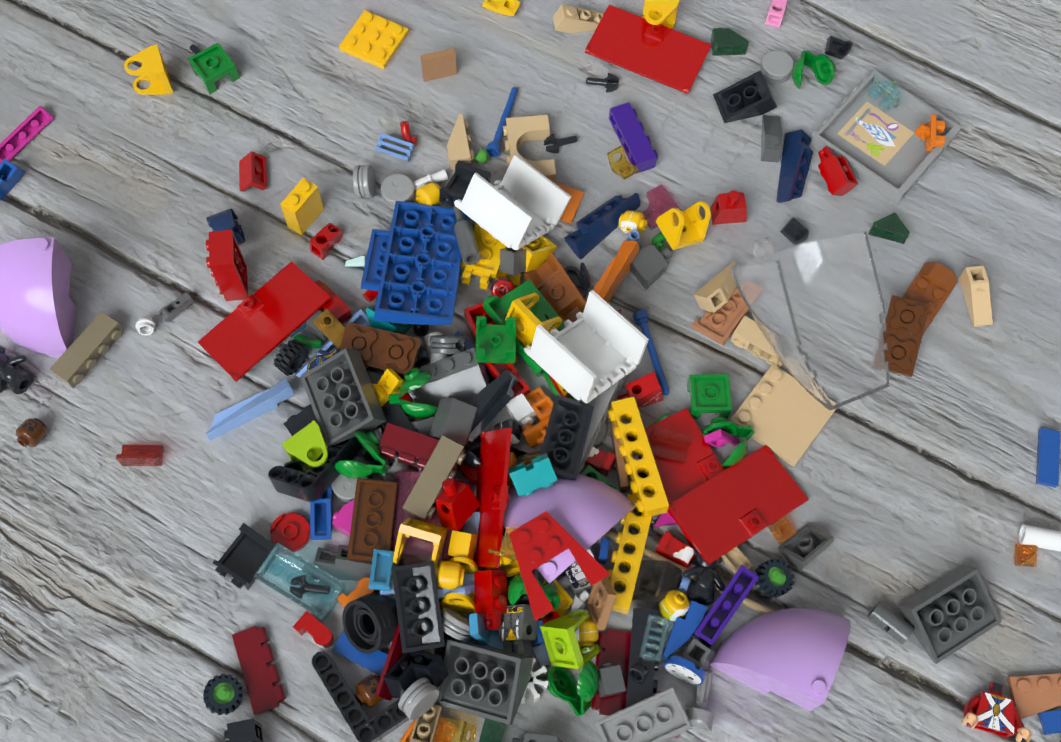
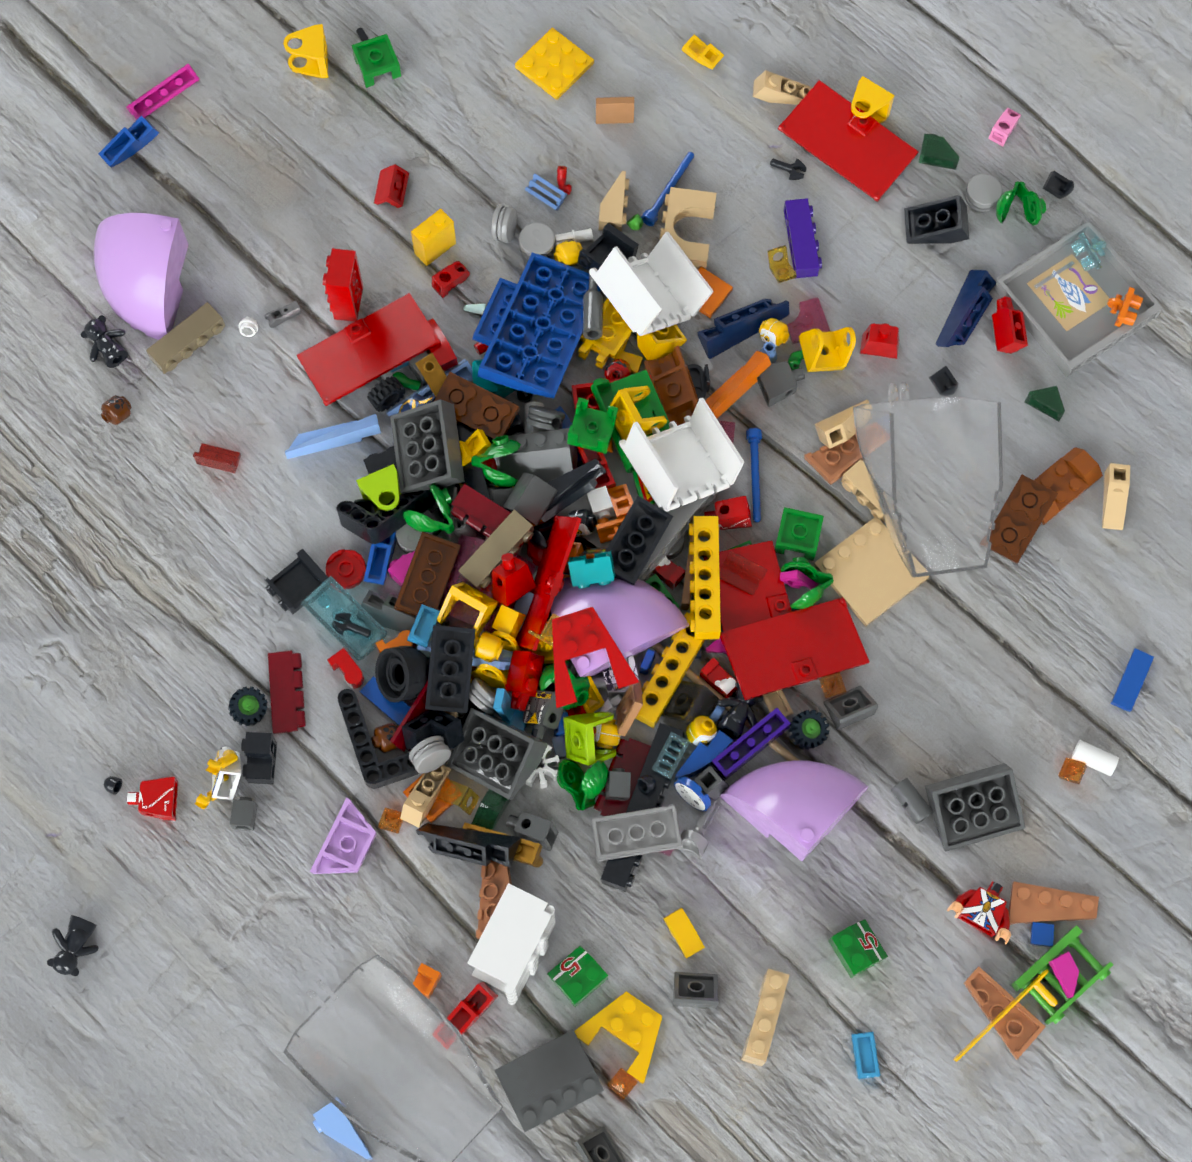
camera: 15 degrees right, 5 degrees up
(227, 221) = (351, 238): dark blue brick -> none
(512, 261) = (635, 346): dark grey brick -> none
(558, 142) = (715, 231): black bar -> none
(771, 139) = (952, 272): dark grey slope -> none

